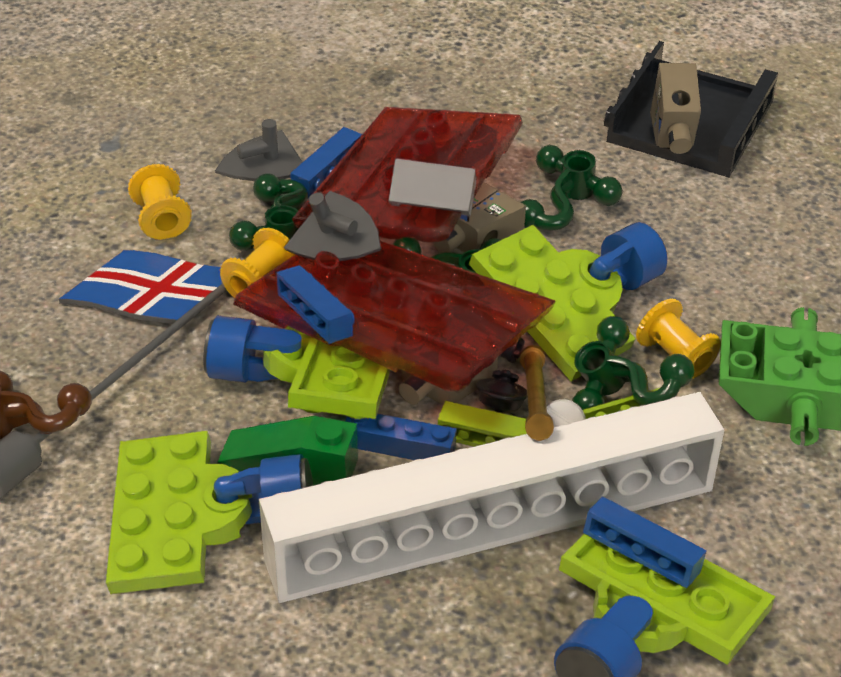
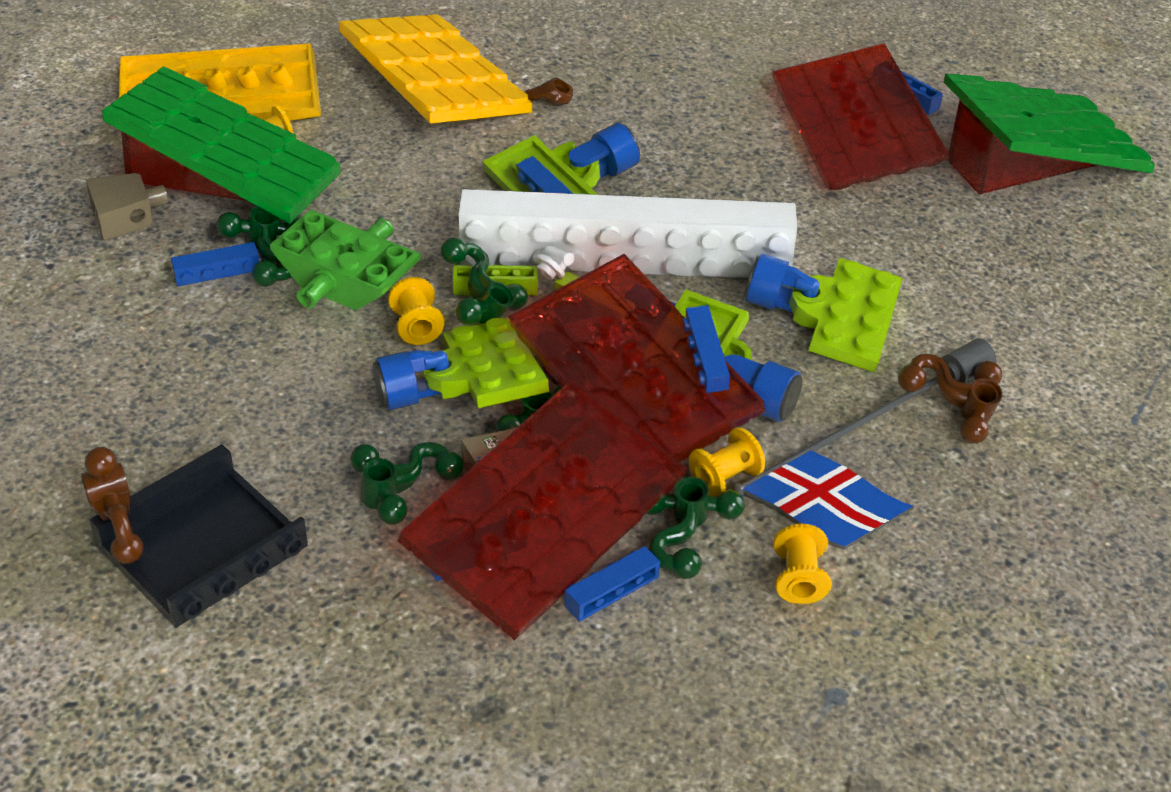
camera: 160 degrees left, 0 degrees up
(261, 155) = (673, 624): dark grey shield -> none
(325, 442) = (765, 327): green slope -> none
(335, 227) = (655, 431): dark grey shield -> none
(433, 186) = (555, 417): light grey hinge -> none
(539, 423) = (589, 210): pearl gold bar -> none
(672, 123) = (241, 494): dark tan torso -> none
(779, 83) = (110, 498): none -> reddish brown piece

